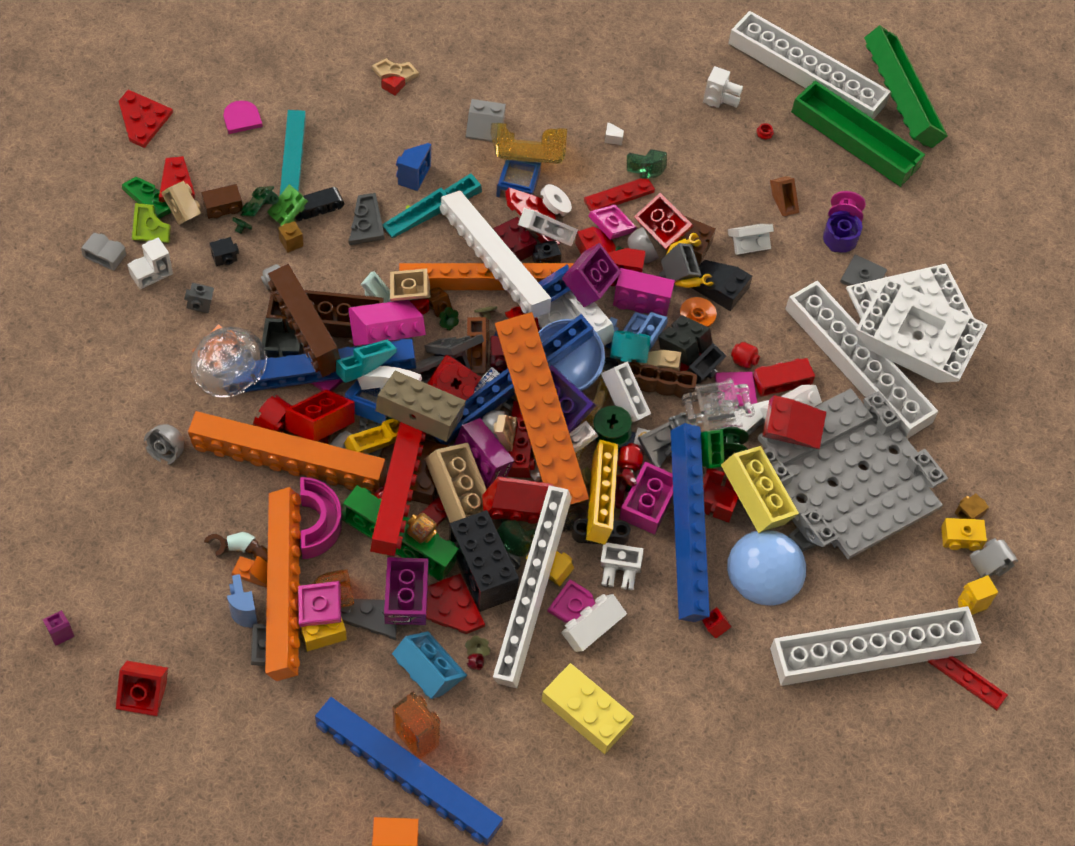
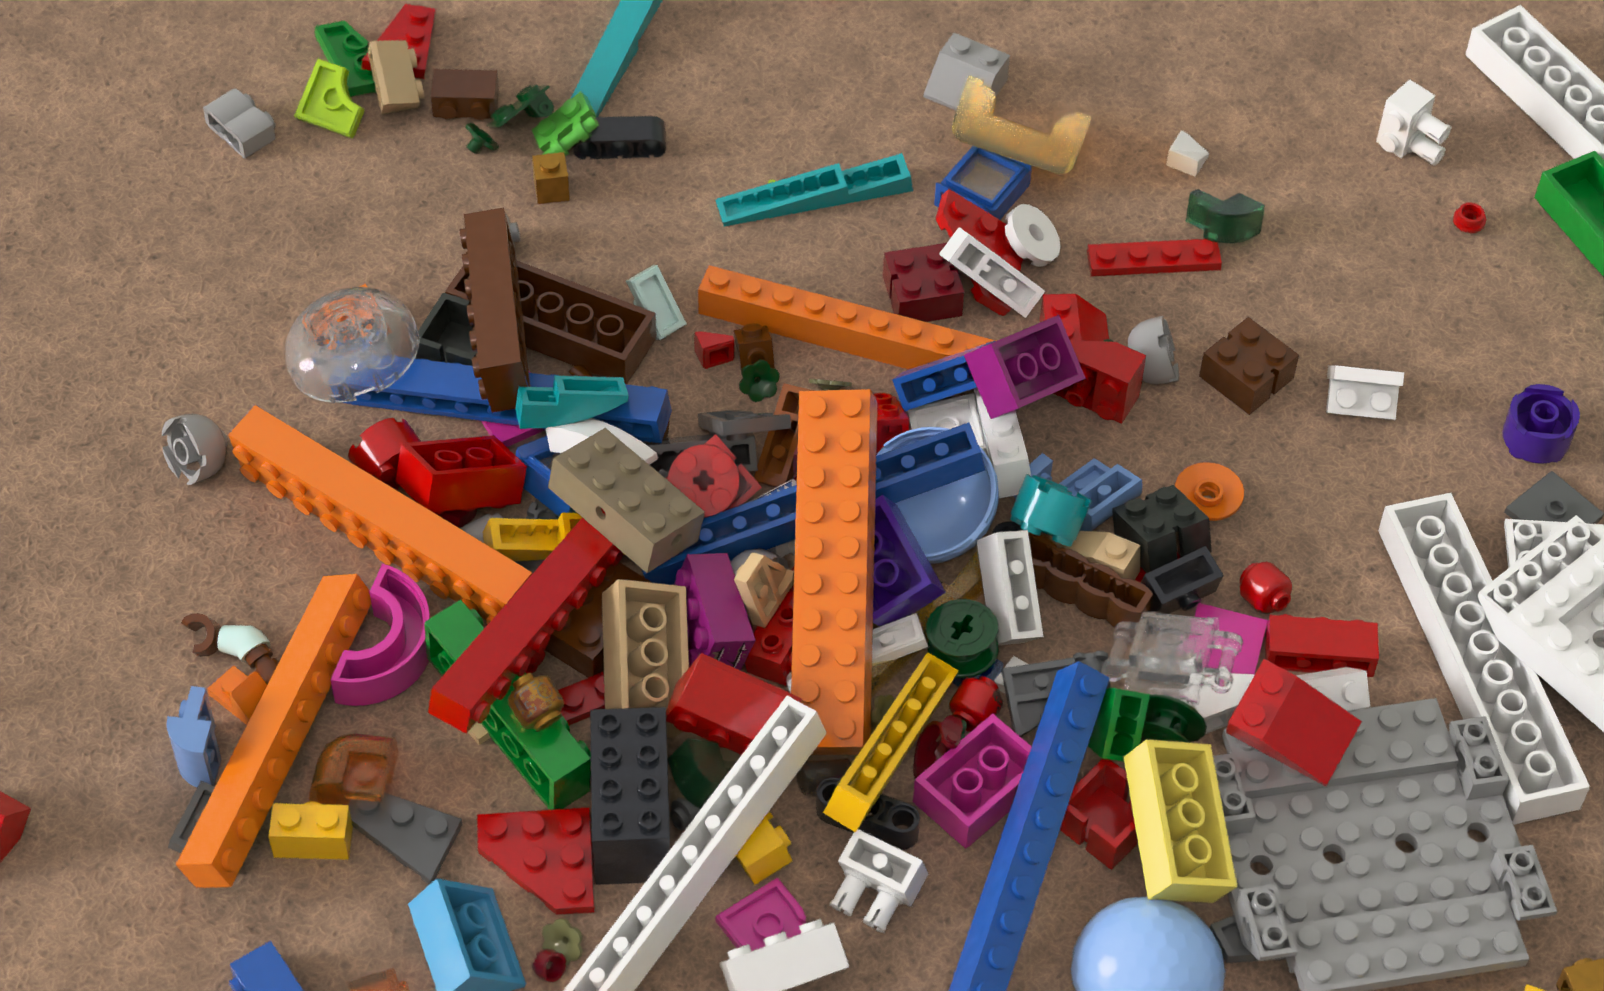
camera: 25 degrees right, 5 degrees down
(151, 267) = (302, 166): white brick -> none
(199, 297) = (356, 234): dark grey brick -> none
(224, 251) = (431, 173): black brick -> none
(319, 603) = (316, 779): dark pink tile -> none
(367, 221) = (692, 188): dark grey wing -> none
(385, 321) = (638, 350): dark pink slope -> none
(406, 591) = (474, 804): magenta brick -> none
(409, 284) = (708, 304): tan slope -> none
(414, 166) = (808, 116): blue slope -> none
(495, 254) = (876, 294): white brick -> none
(547, 253) = (976, 317): black brick -> none
(612, 221) = (1117, 296): dark pink tile -> none
(643, 292) = (1119, 428): dark pink brick -> none
(663, 221) = (1204, 316): red slope -> none
(682, 265) = (1207, 399): dark grey torso -> none
(728, 286) = (1274, 453): black slope -> none
(785, 195) = (1459, 335): dark orange slope -> none
(848, 202) = (1572, 375): dark pink piece -> none

